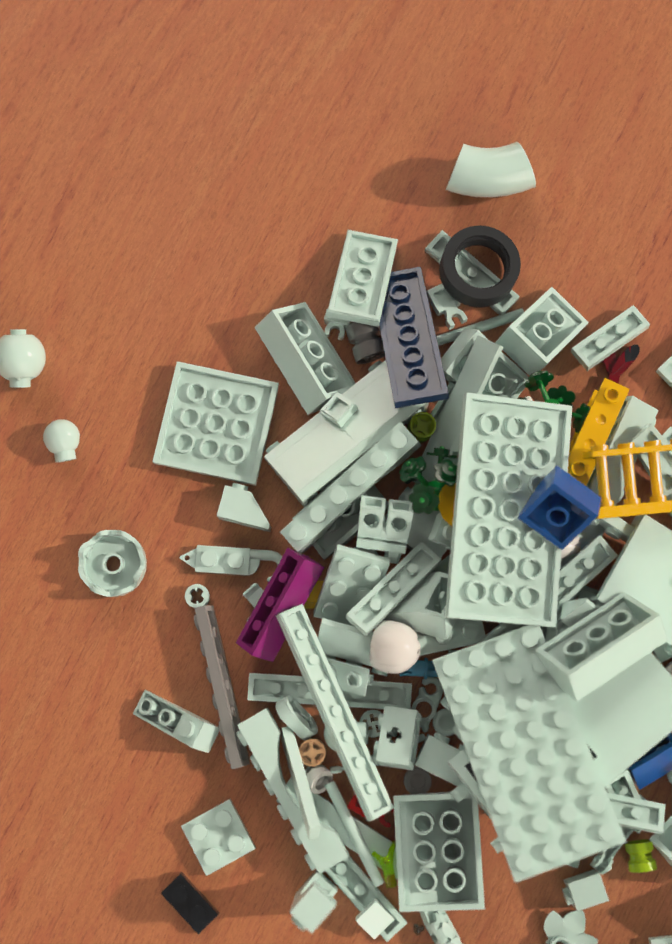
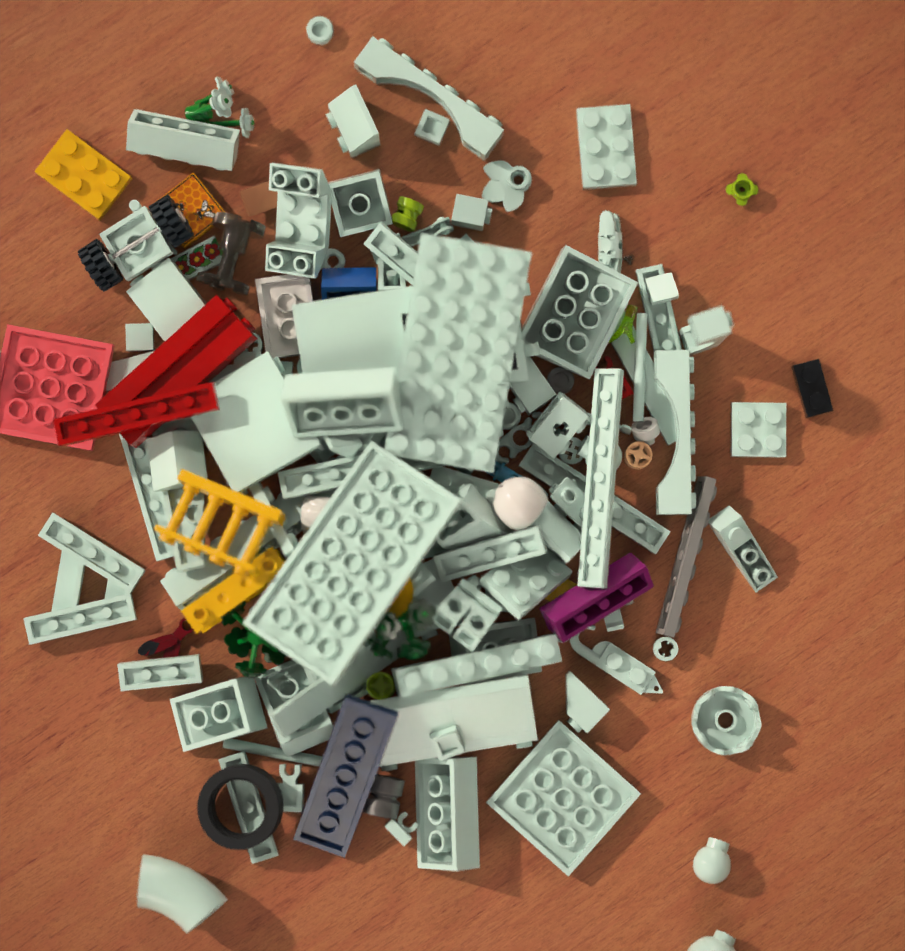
camera: 160 degrees left, 5 degrees up
(296, 718) = (636, 491): light aqua beam -> none
(300, 783) = (663, 434): light aqua tile -> none
(362, 278) = (353, 857): light aqua tile -> none
(560, 508) = (308, 538): blue slope -> none

